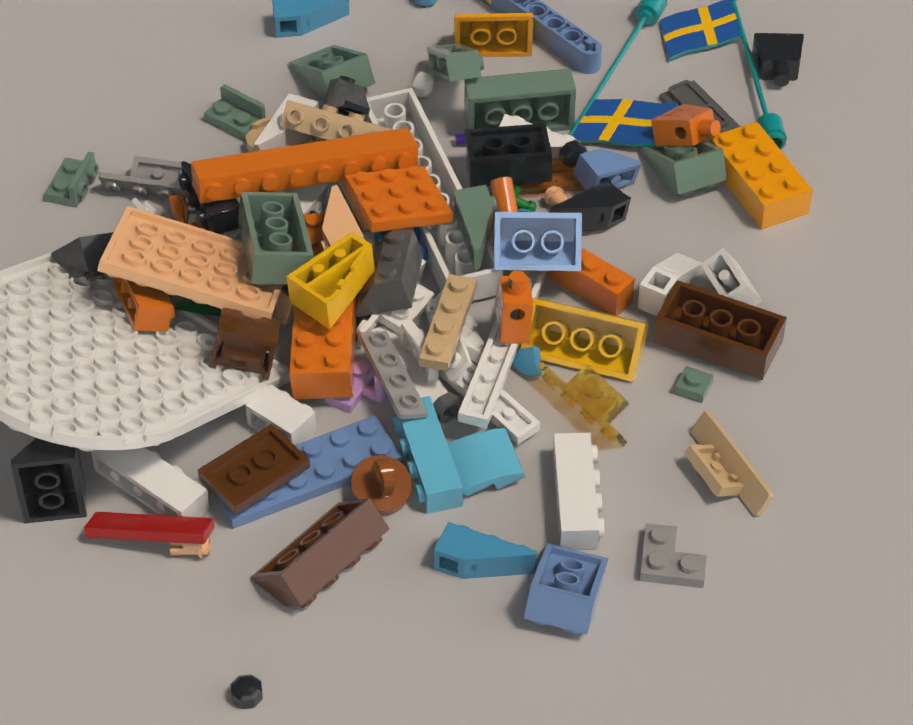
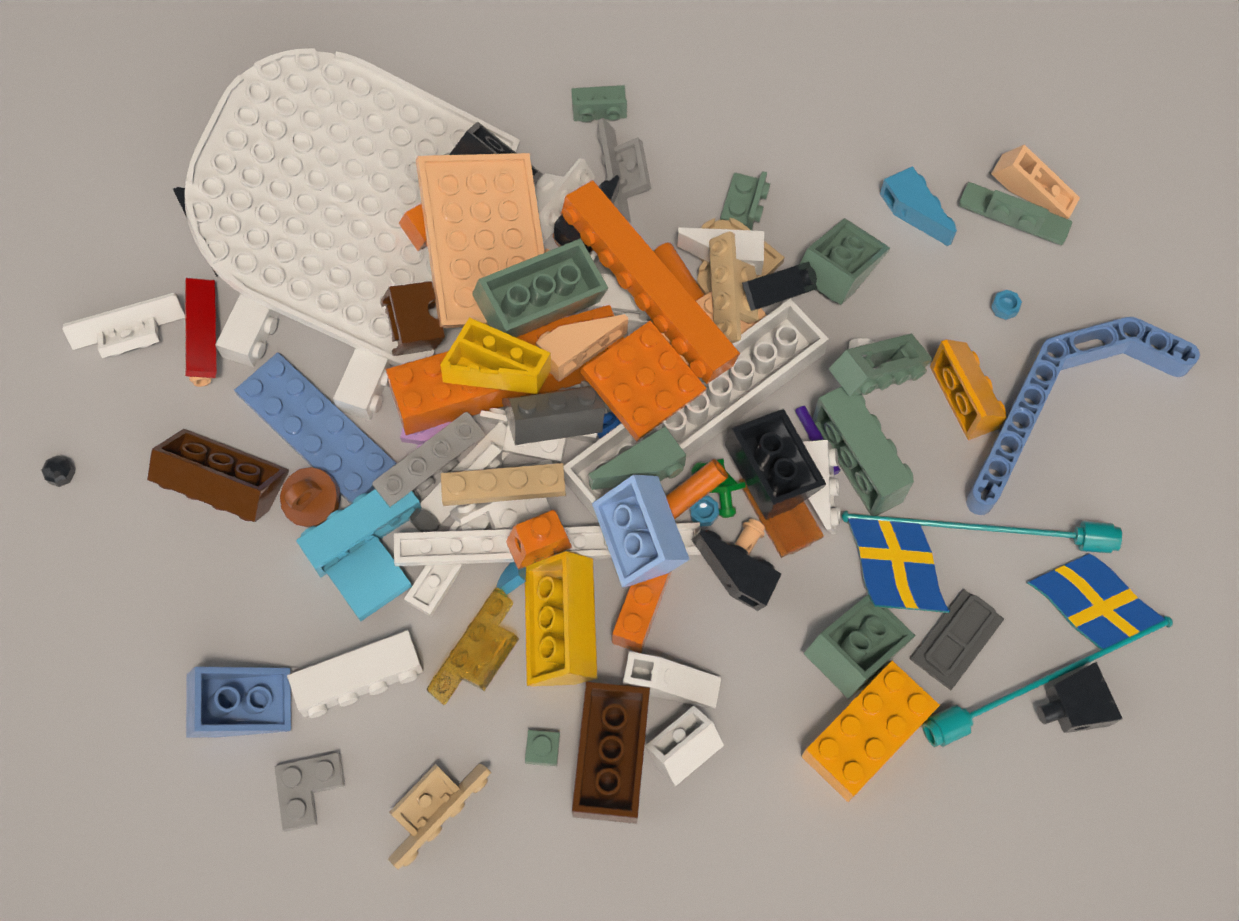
camera: 70 degrees right, 20 degrees up
(113, 595) = (124, 327): none -> white bracket
(253, 468) = (282, 383): reddish brown plate -> none
(479, 555) = (251, 602): dark azure slope -> none
(570, 153) = (811, 527): black tile -> none
(604, 165) = (802, 567): medium blue slope -> none
(695, 126) = (903, 629): orange torso -> none

